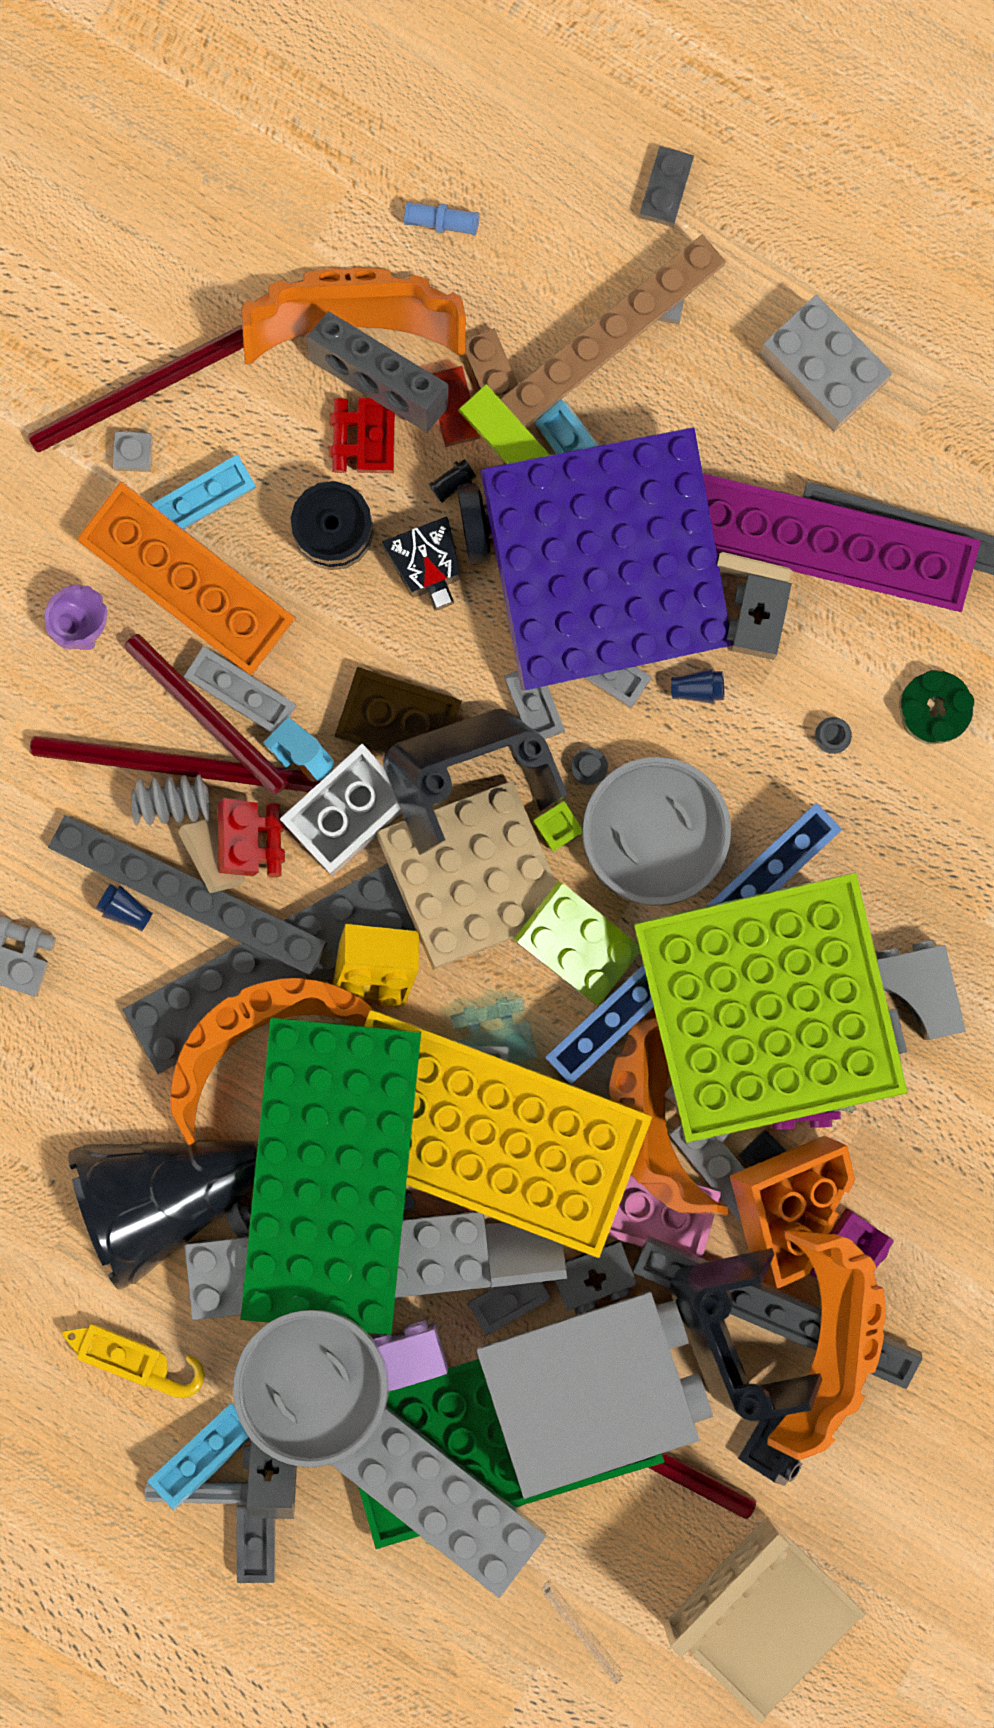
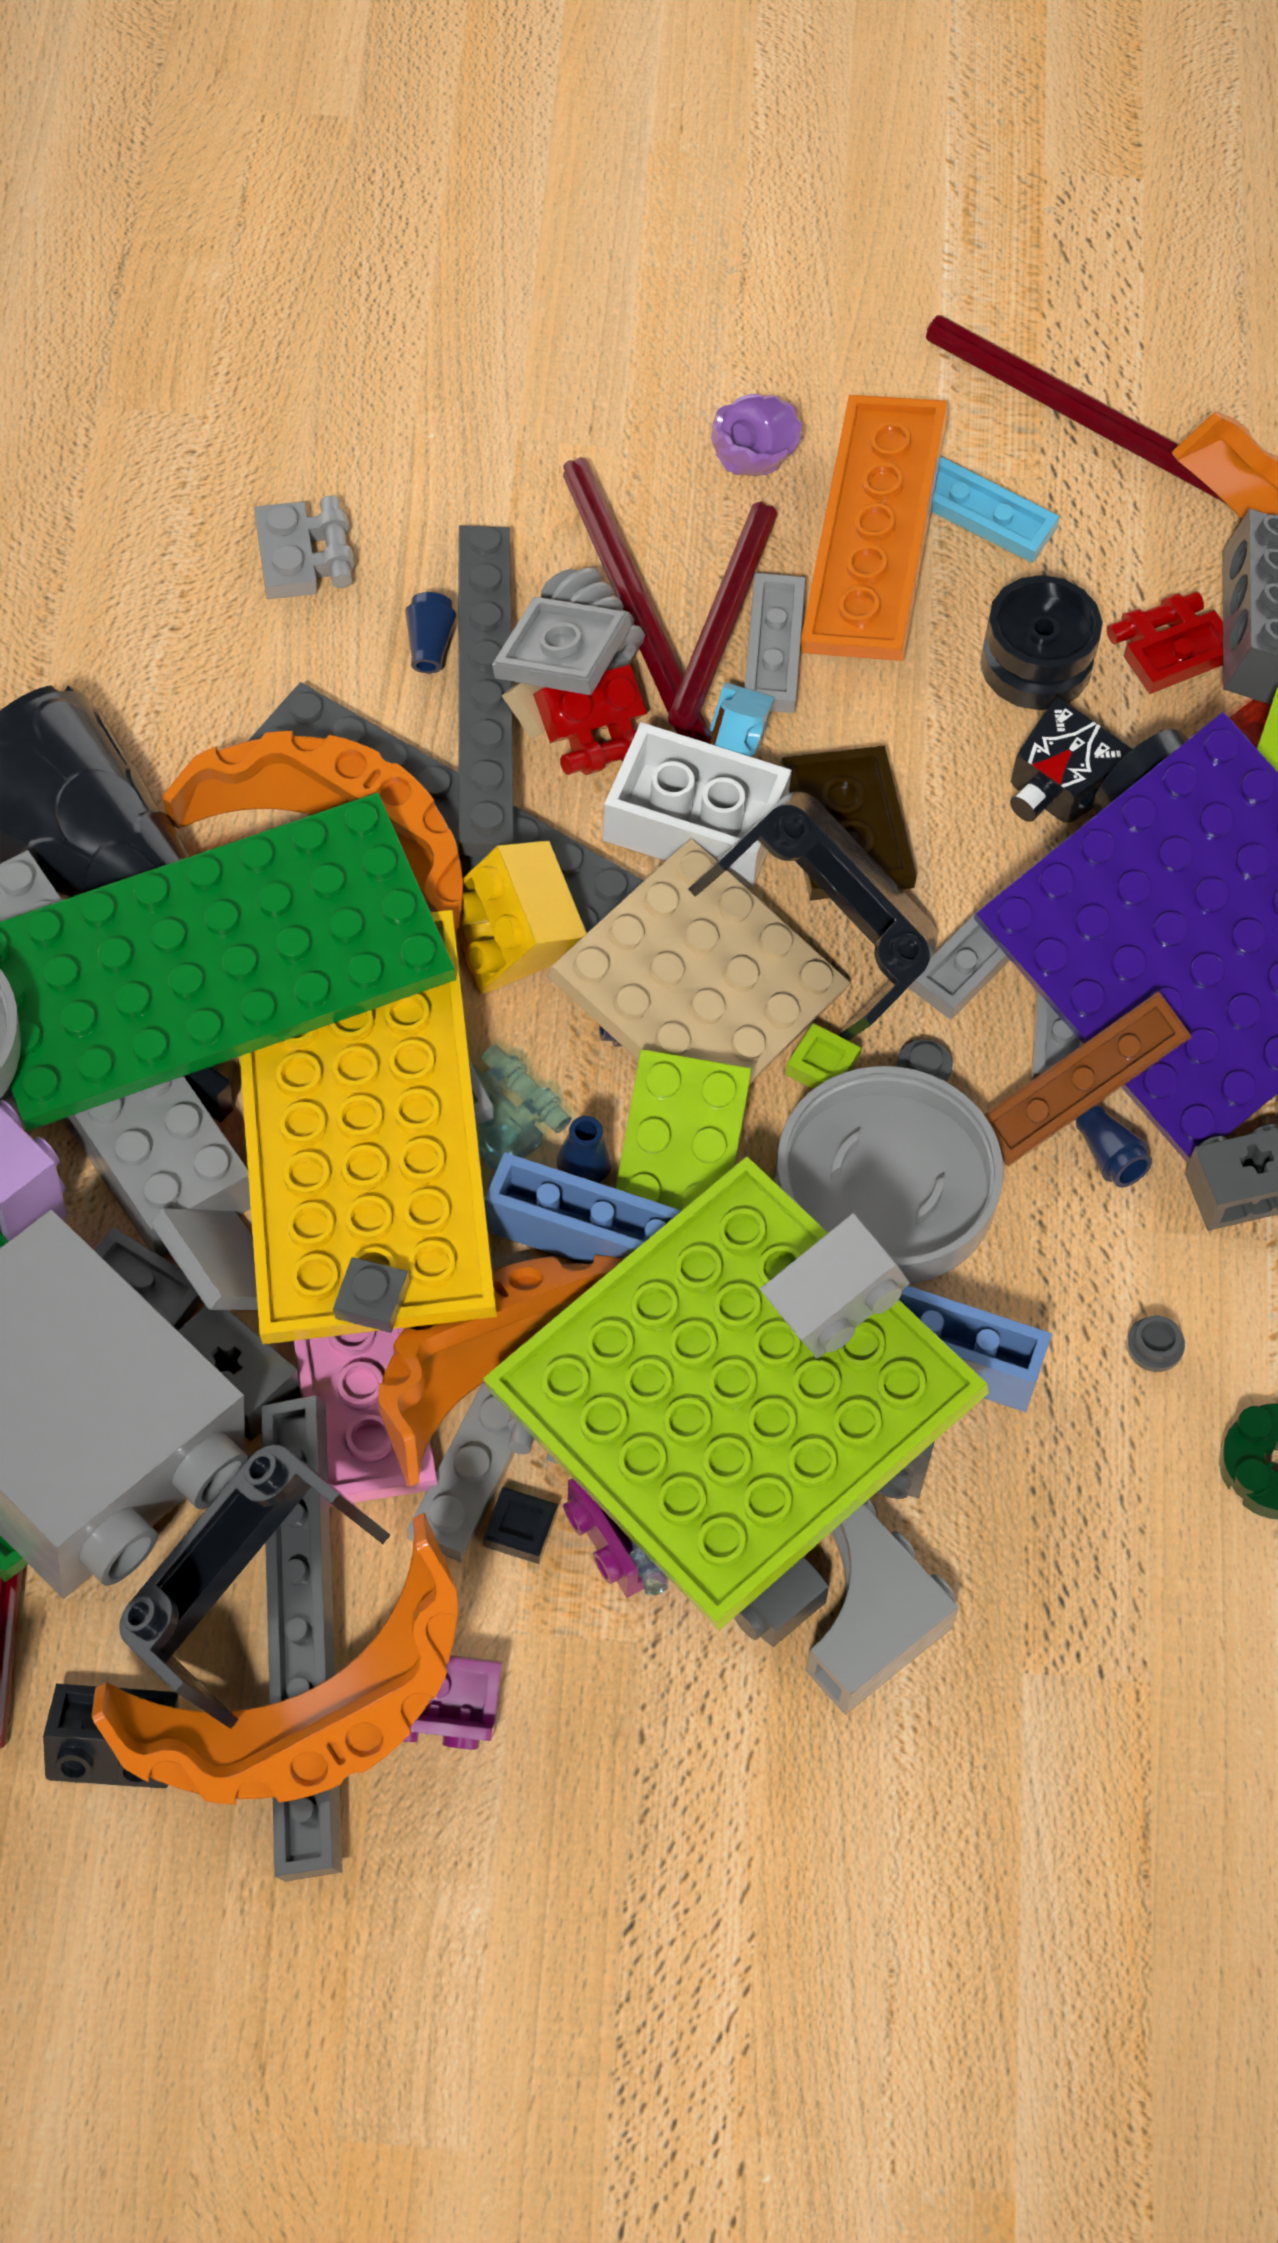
camera: 60 degrees right, 25 degrees down
(132, 451) = (990, 425): light grey plate -> none
(197, 838) = (562, 645): none -> light grey plate
(553, 1014) = (585, 1151): none -> dark blue cone
(611, 1185) = (371, 1295): none -> dark grey plate
(657, 683) = (1086, 1077): none -> dark orange tile
(760, 928) = (836, 1286): none -> light grey brick
(792, 1194) = (502, 1568): orange brick -> none

